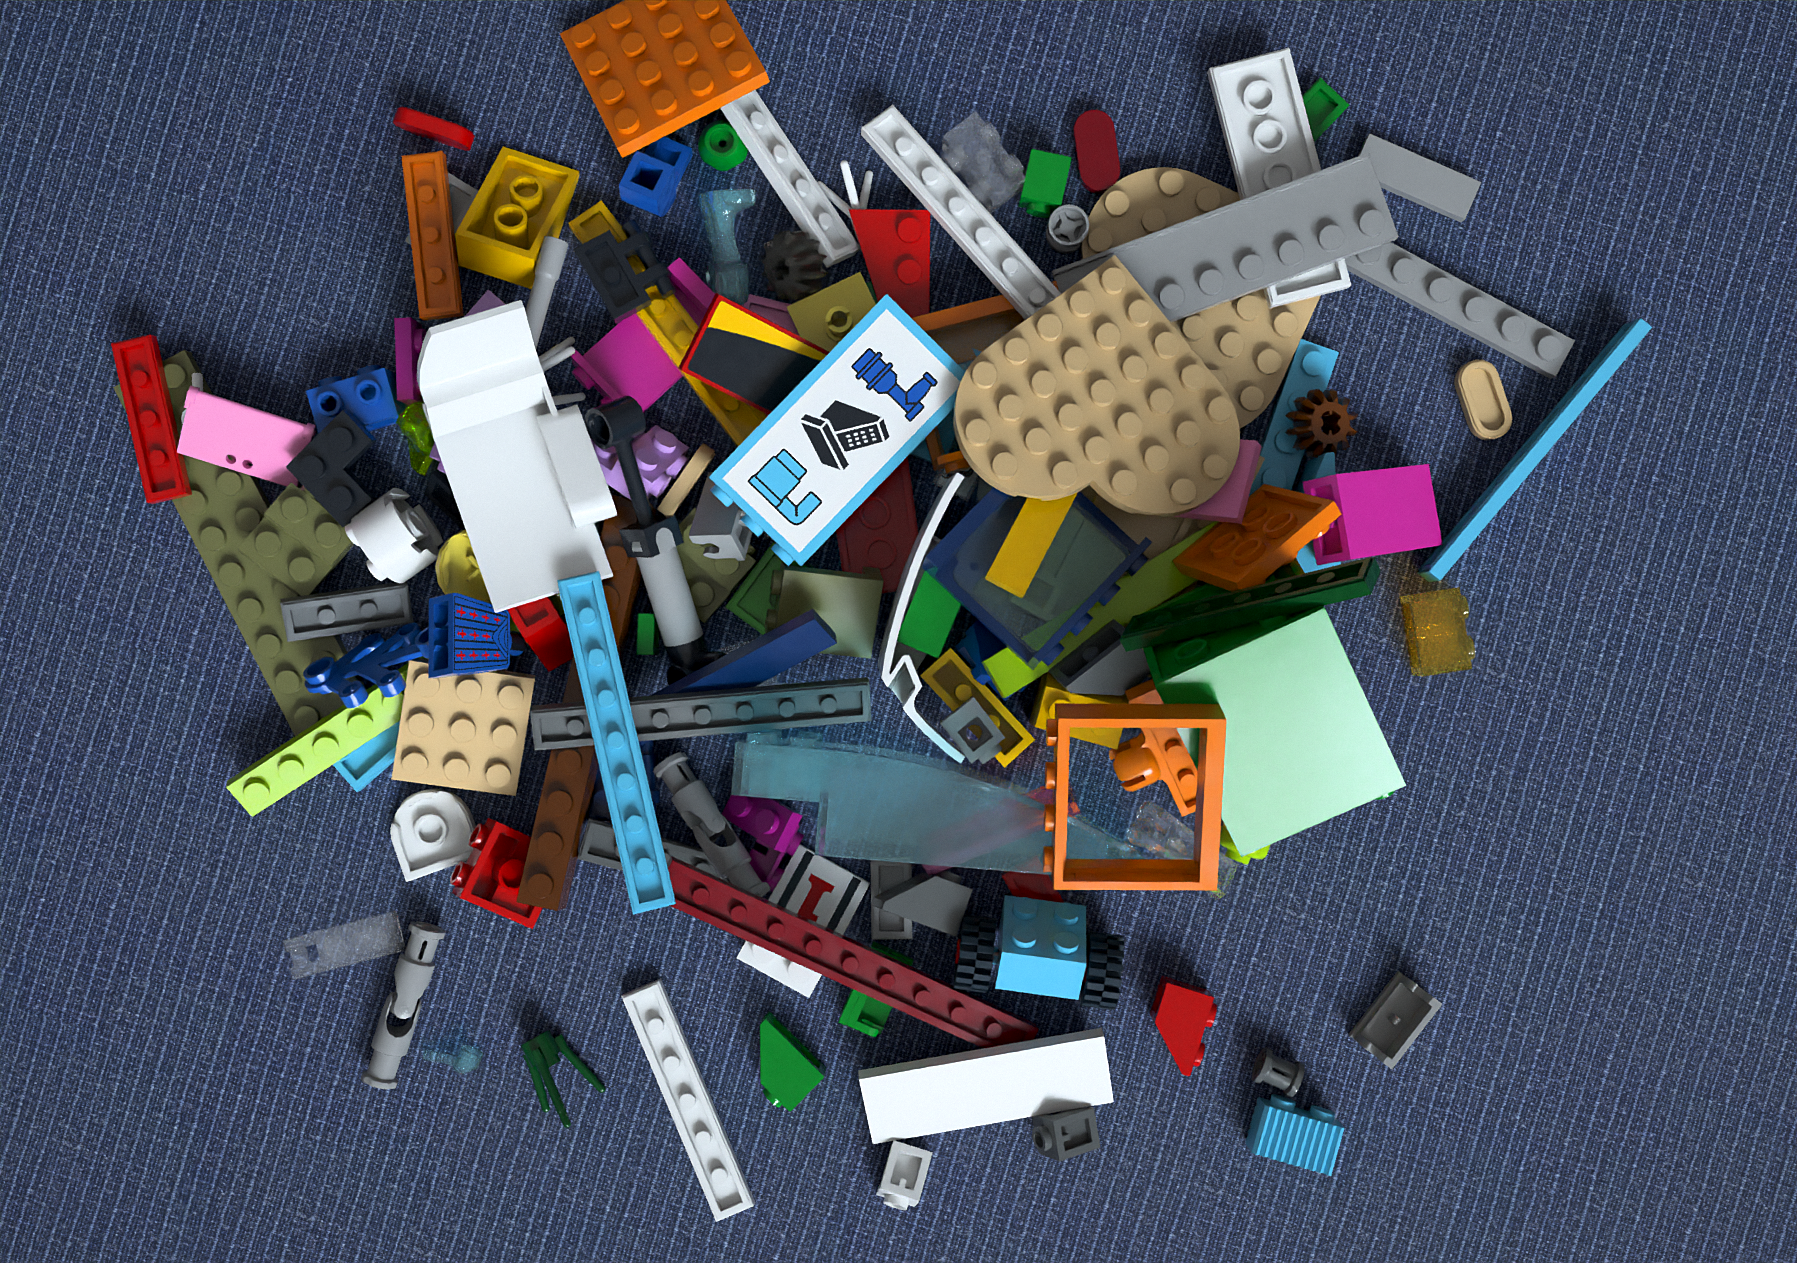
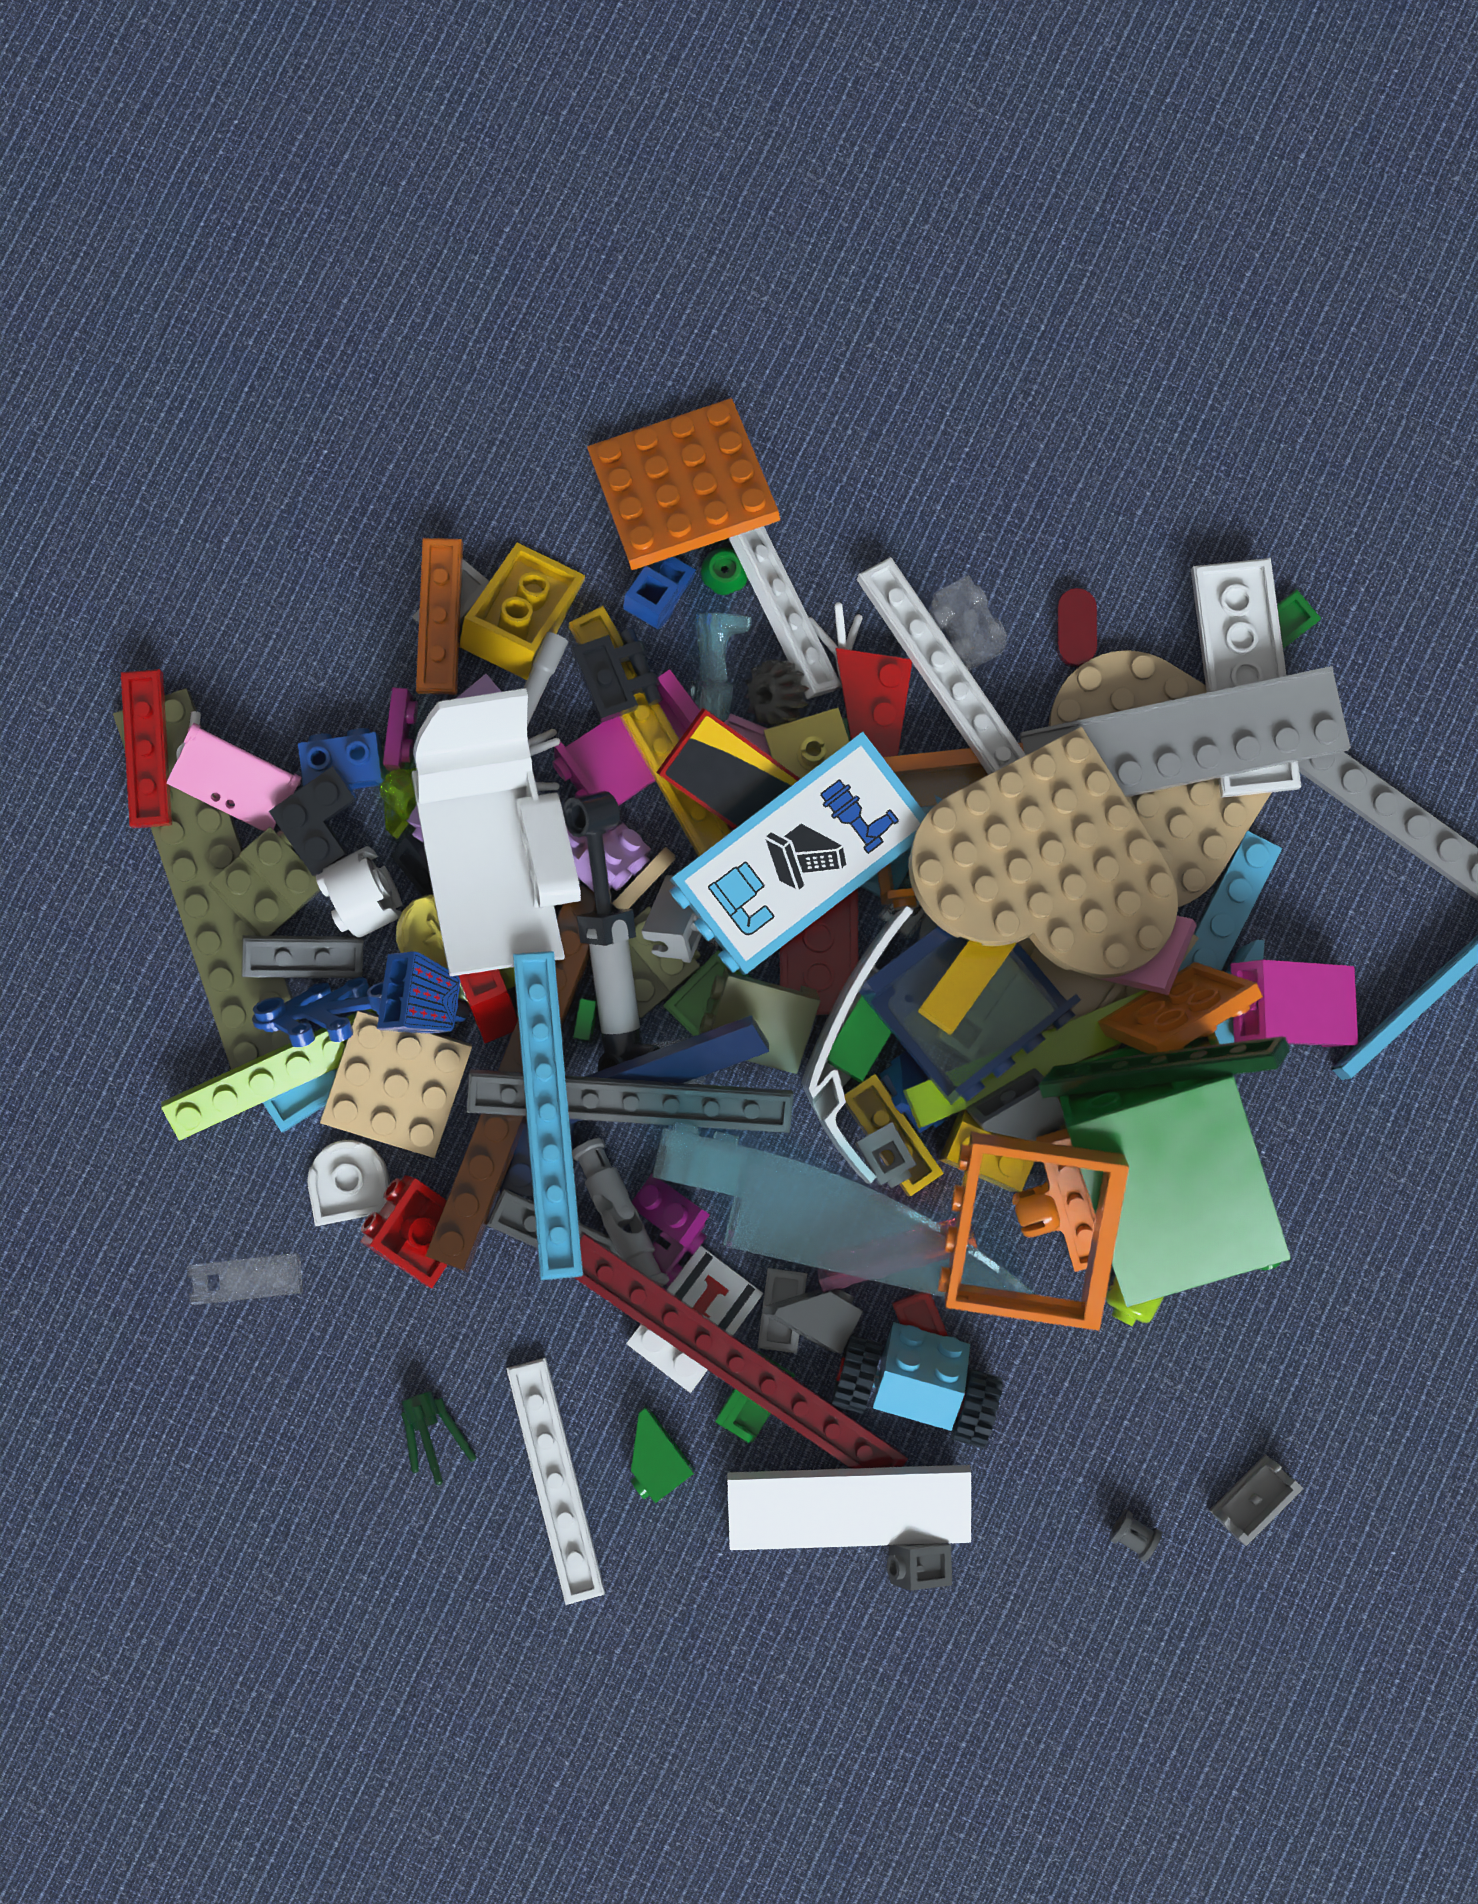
camera: 10 degrees right, 5 degrees down
(411, 979) = (304, 1324): light grey piece -> none
(434, 128) = (455, 516): red tile -> none
(465, 1062) = (345, 1410): clear light blue hand -> none
(904, 1175) = (756, 1585): white bracket -> none
(1044, 183) = (1024, 650): green brick -> none
(1069, 222) = (1043, 690): light grey wheel -> none
(1174, 842) = (1051, 1279): clear plate -> none
(1181, 1017) = (1046, 1468): red slope -> none
(1294, 1134) = (1144, 1600): medium azure brick -> none
(1334, 425) = (1244, 909): reddish brown gear -> none
(1421, 178) = (1380, 697): light grey tile -> none
(1437, 632) = (1343, 1127): clear yellow brick -> none
(1483, 400) = (1414, 913): tan tile -> none

